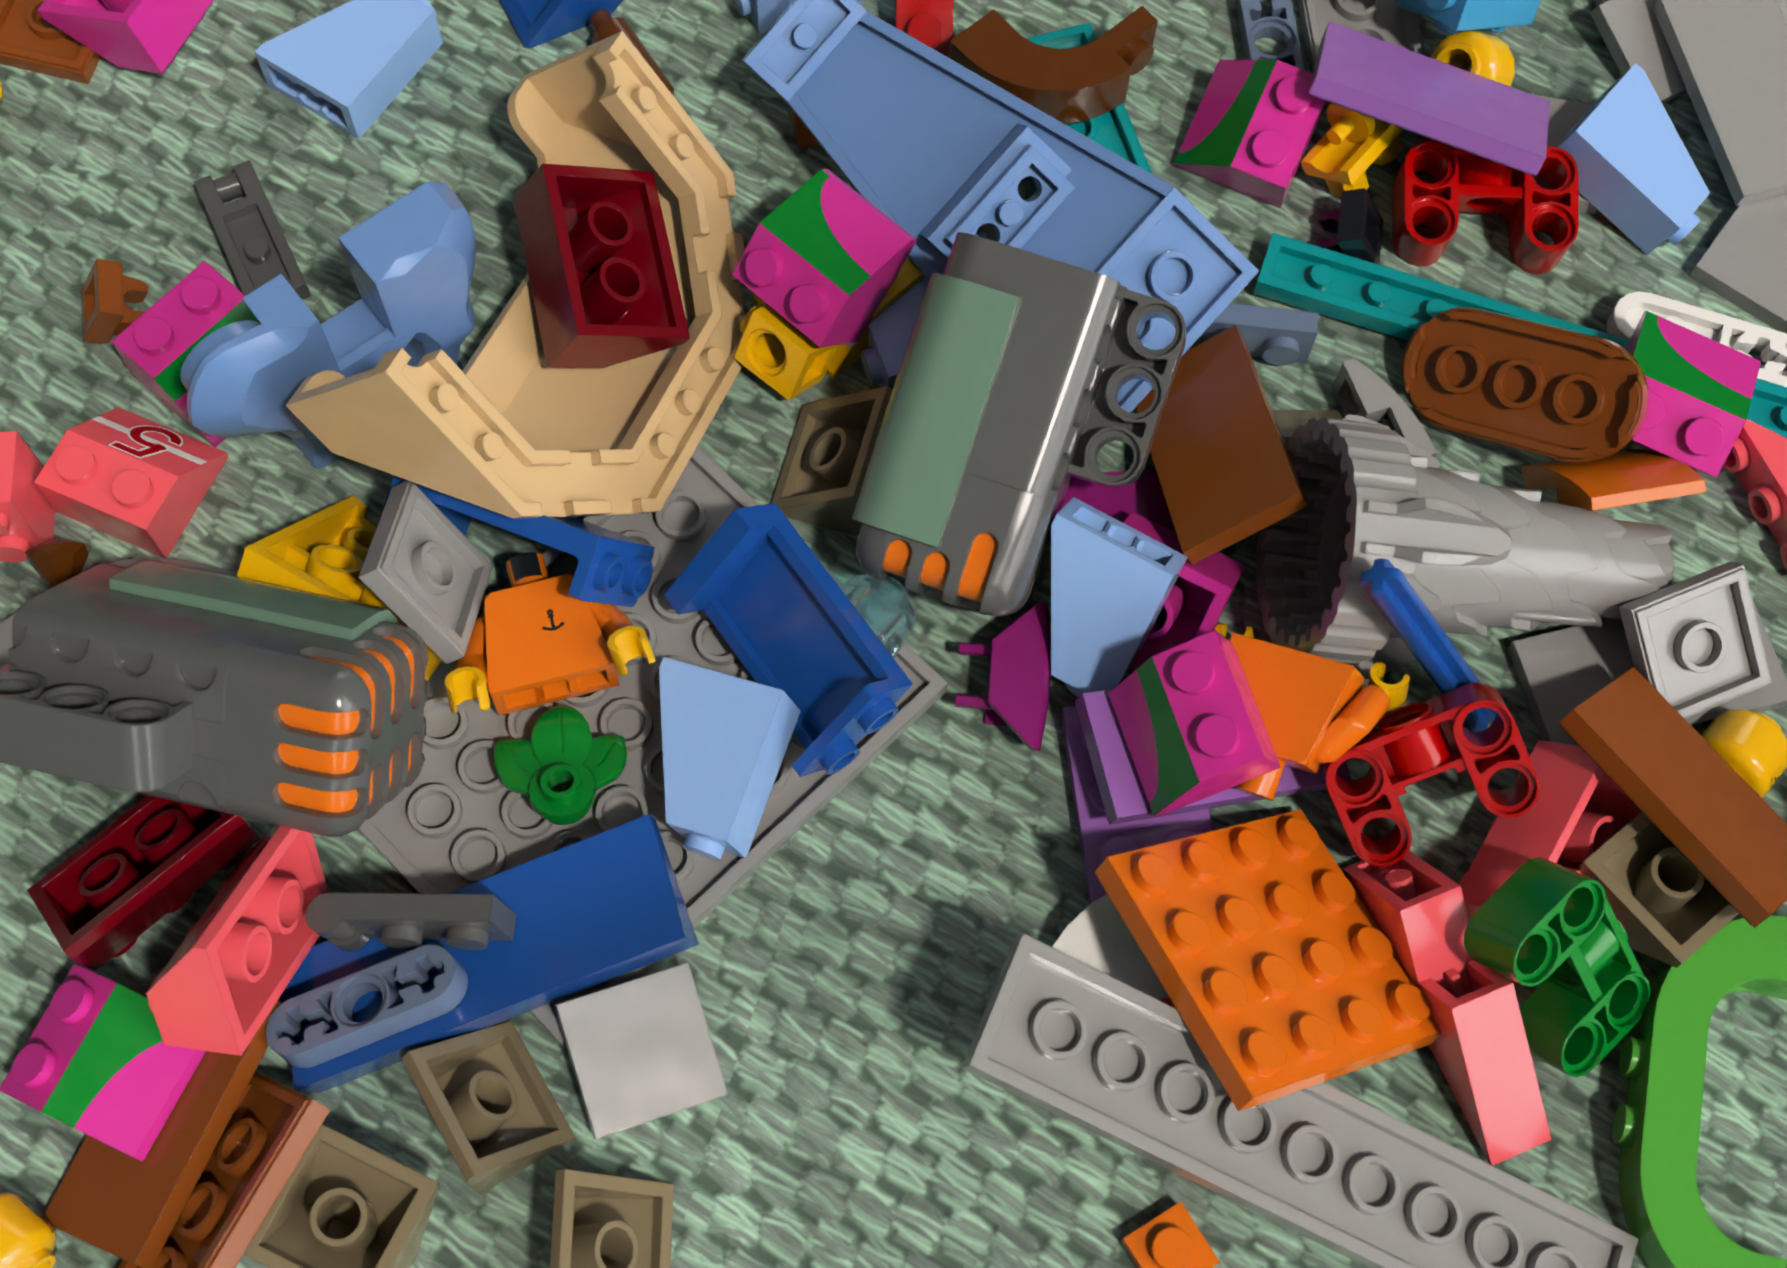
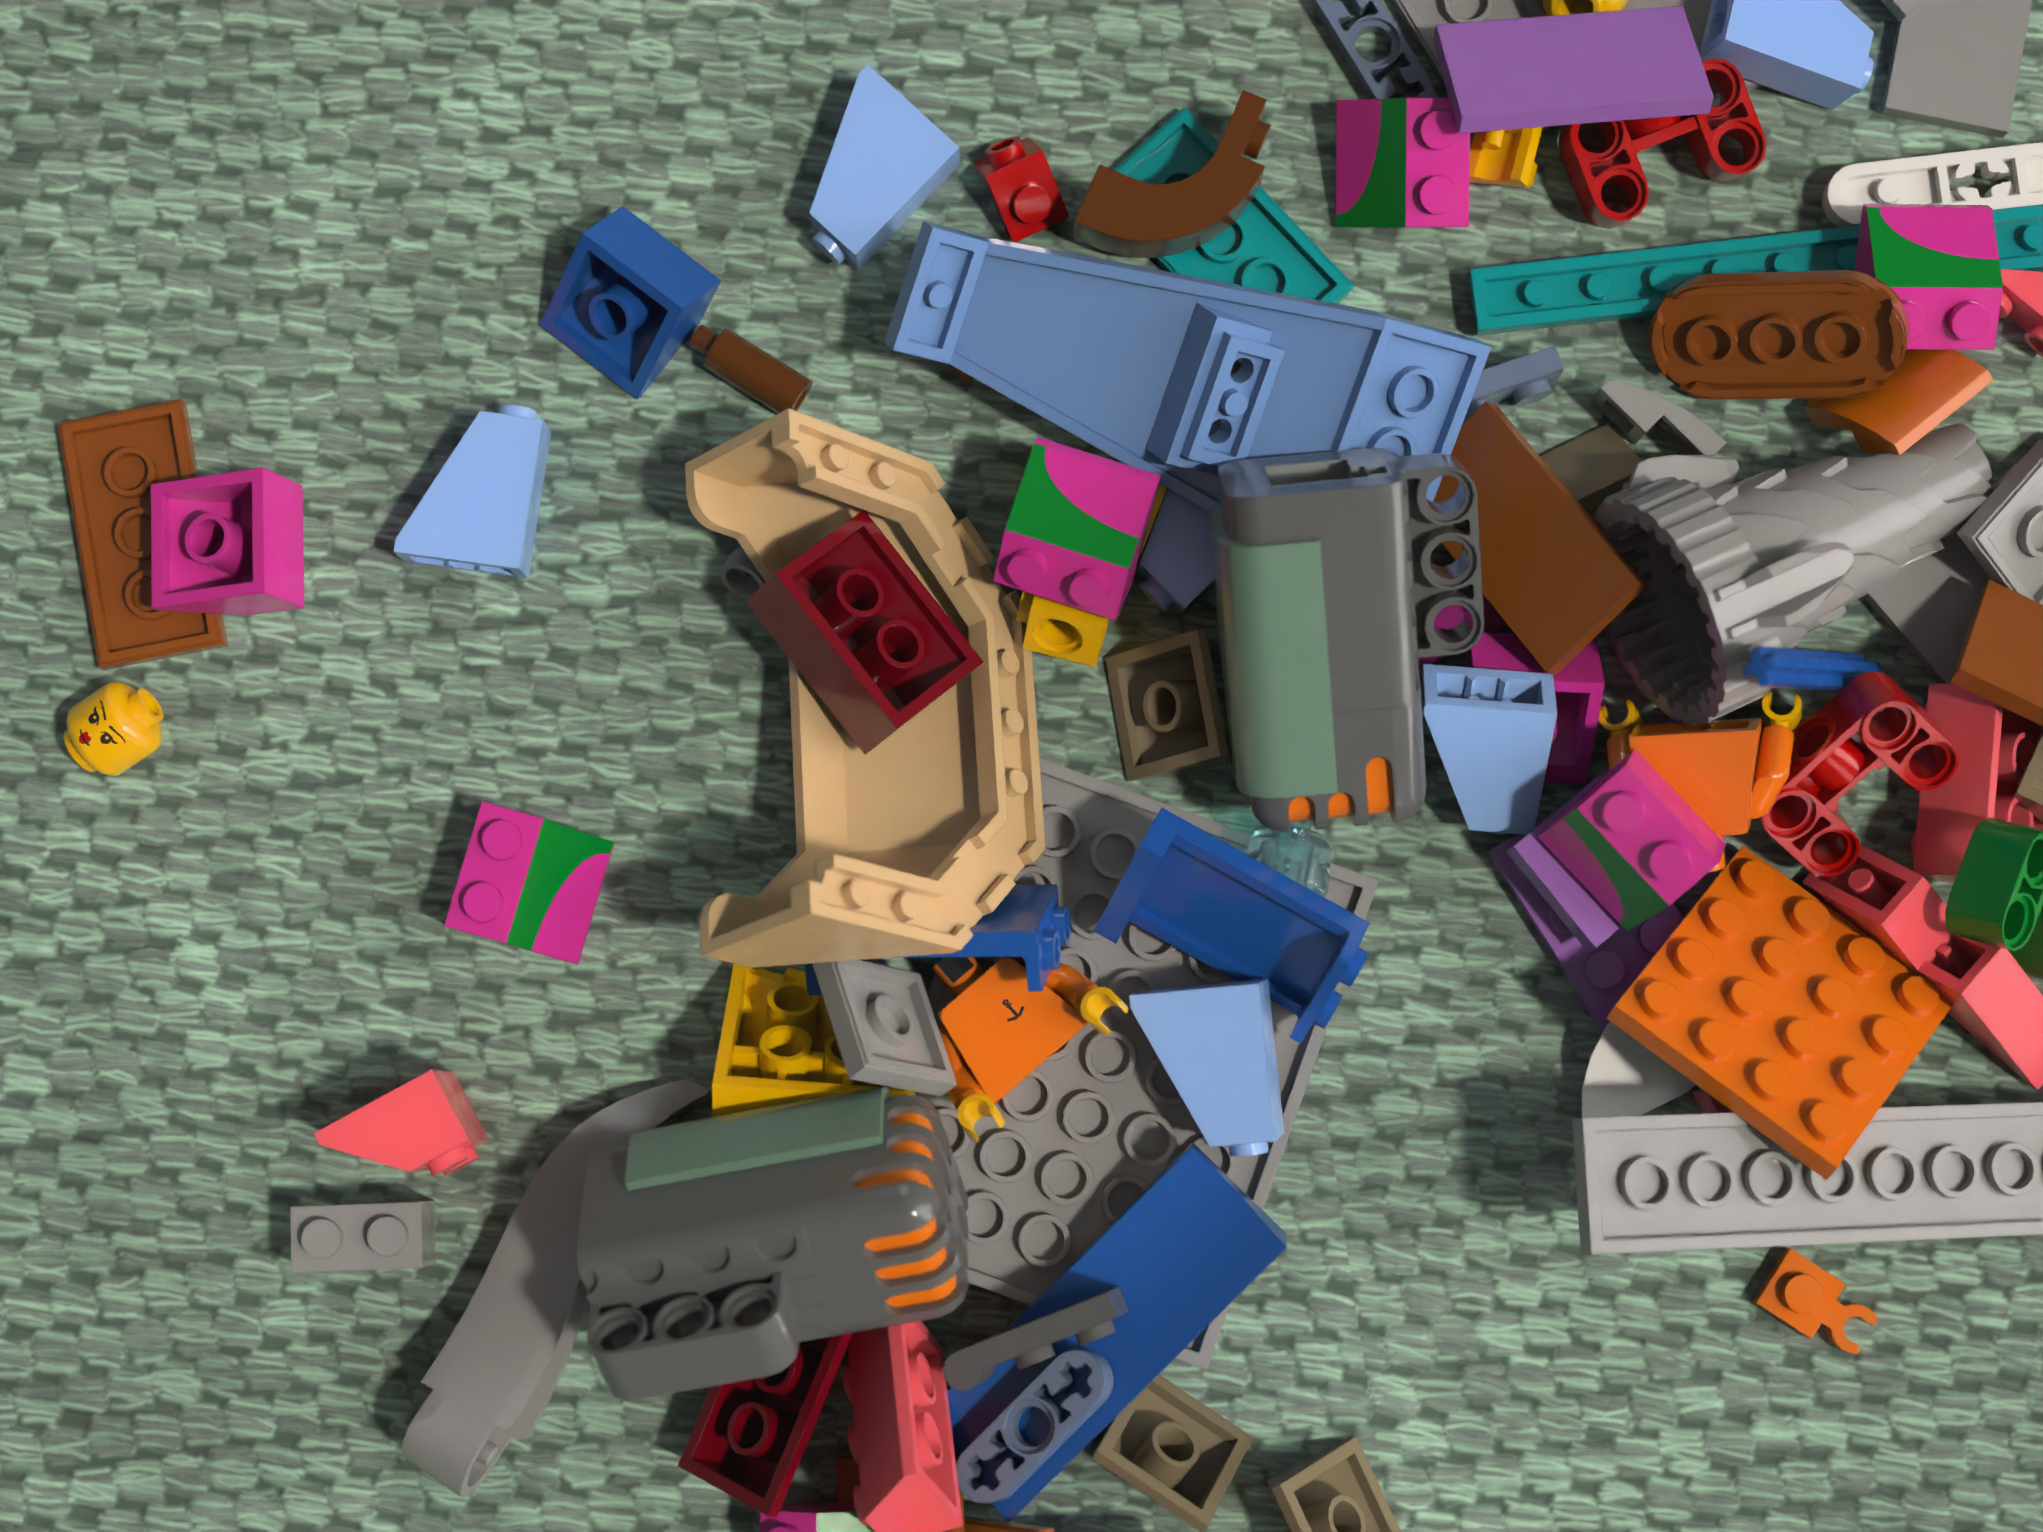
camera: 20 degrees left, 15 degrees up
(58, 559) = (511, 1152): reddish brown rock -> none
(104, 301) = (396, 876): dark orange tile -> none
(130, 478) = (528, 1033): coral slope -> none
(249, 230) = (494, 741): dark grey plate -> none
(414, 292) = (660, 883): medium blue animal -> none
(559, 756) = (1071, 1119): green plate -> none
(641, 1050) = (1278, 1344): light grey tile -> none
(1016, 676) = (1440, 847): magenta piece -> none
(1357, 226) = (1550, 224): black tile -> none

